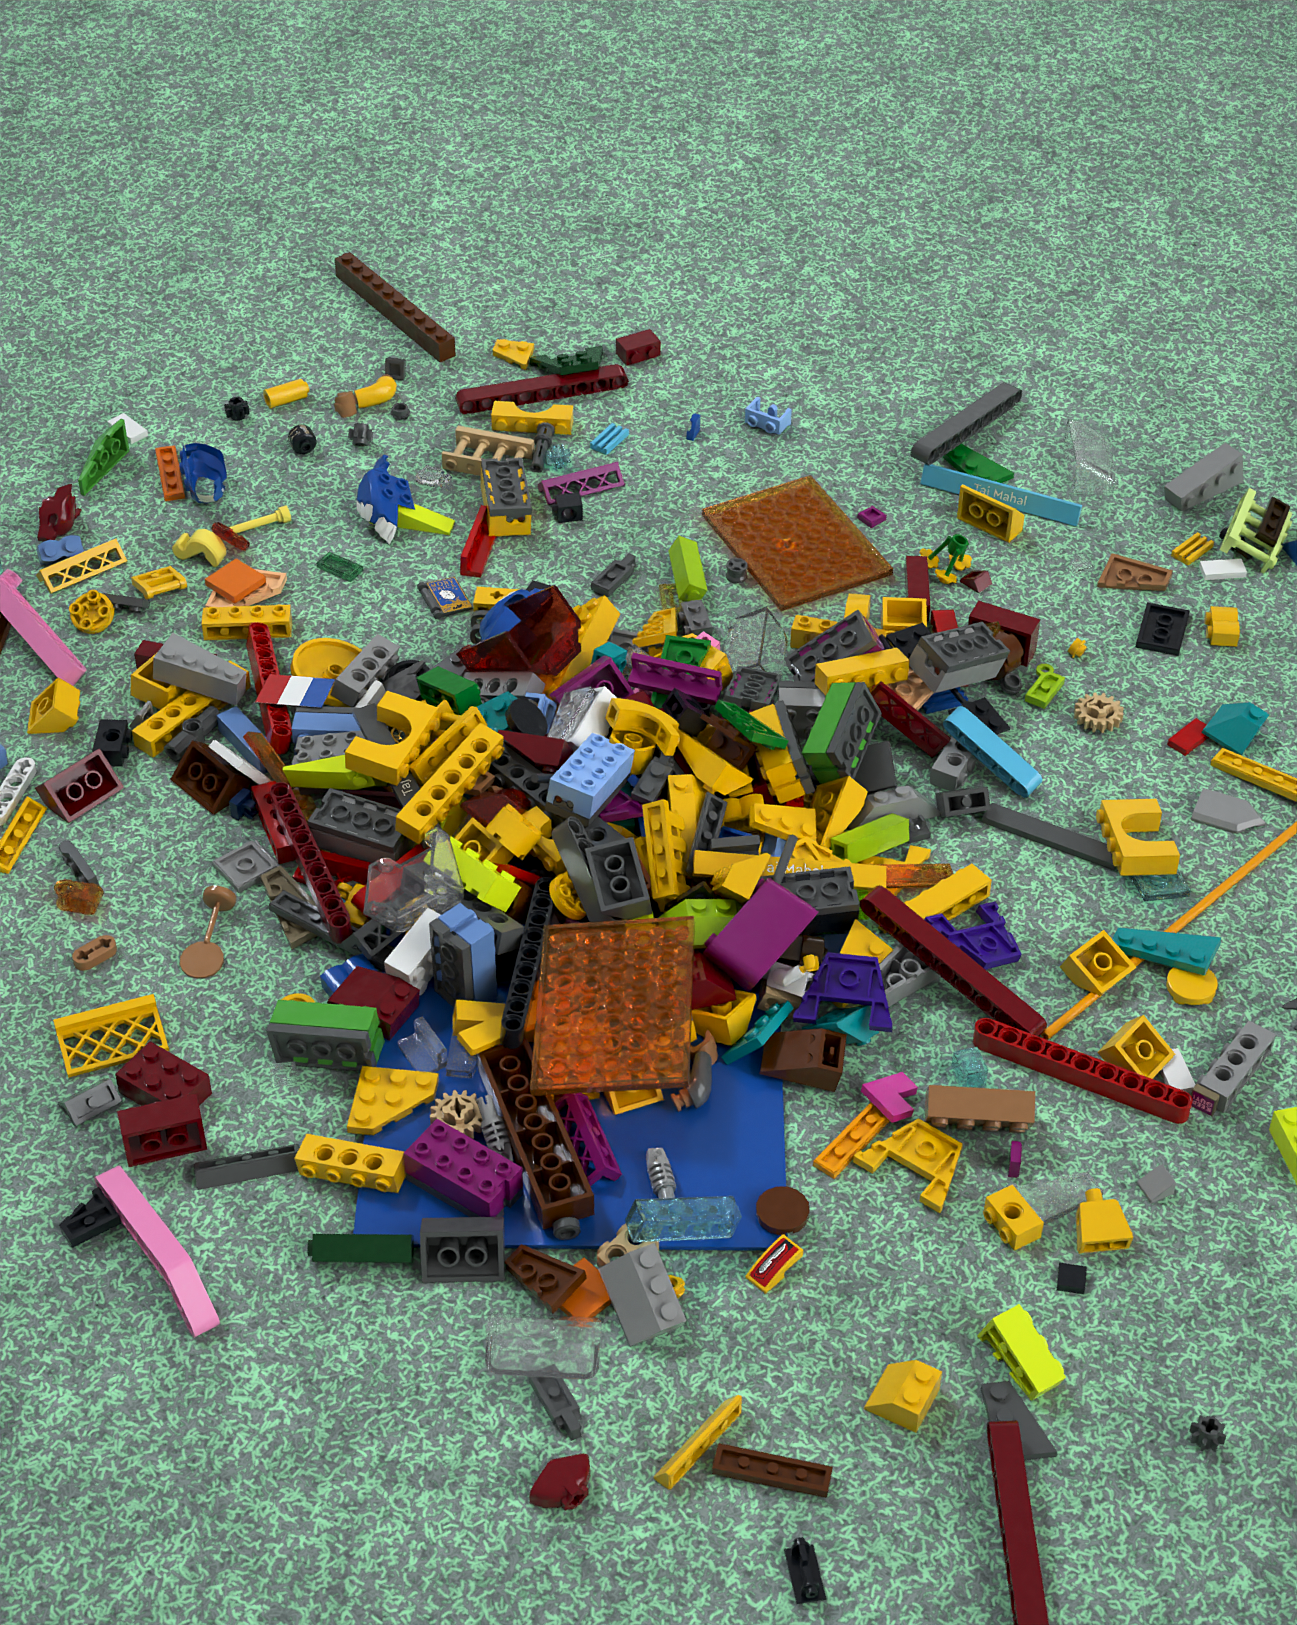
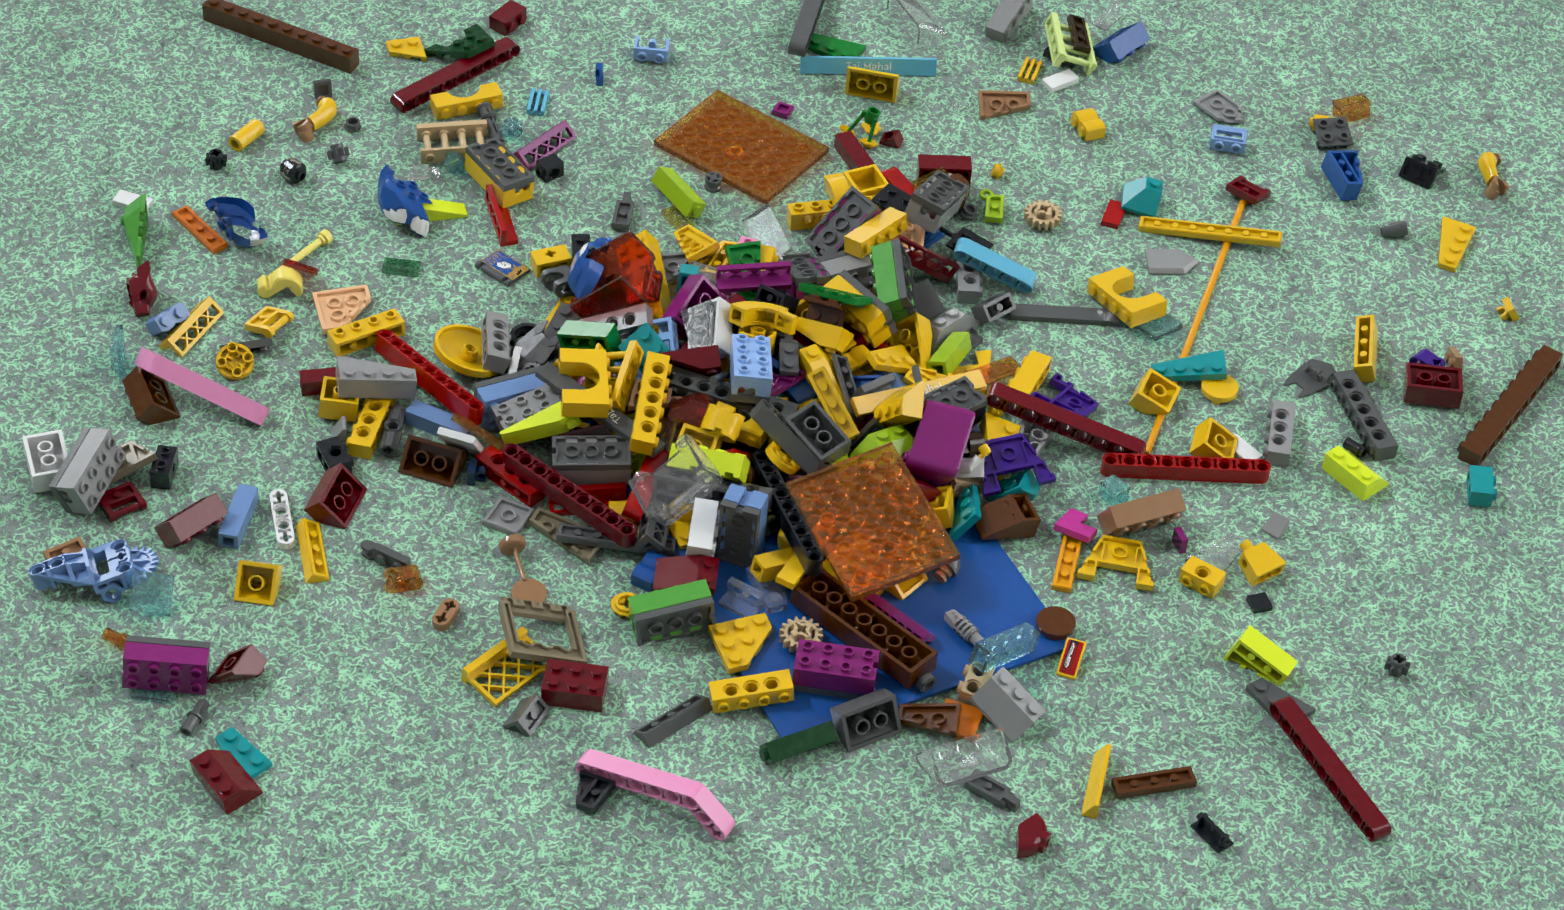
camera: 30 degrees left, 0 degrees up
(54, 709) = (266, 446): yellow slope -> none
(147, 1030) = (537, 651): none -> dark tan hinge
(162, 1130) = (604, 714): dark red slope -> none
(235, 580) = (333, 302): orange tile -> none
(295, 690) = (461, 372): sticker -> none
(471, 474) = (454, 161): none -> clear light blue gear
(494, 1128) = (832, 632): light grey hinge -> none
(526, 718) = (670, 338): black tile -> none
(694, 618) = (714, 228): flat silver brick -> none
(905, 1393) = (1204, 707): yellow slope -> none
(1162, 629) = (1046, 139): black tile -> none
(1204, 1099) = (1276, 461): tile -> none

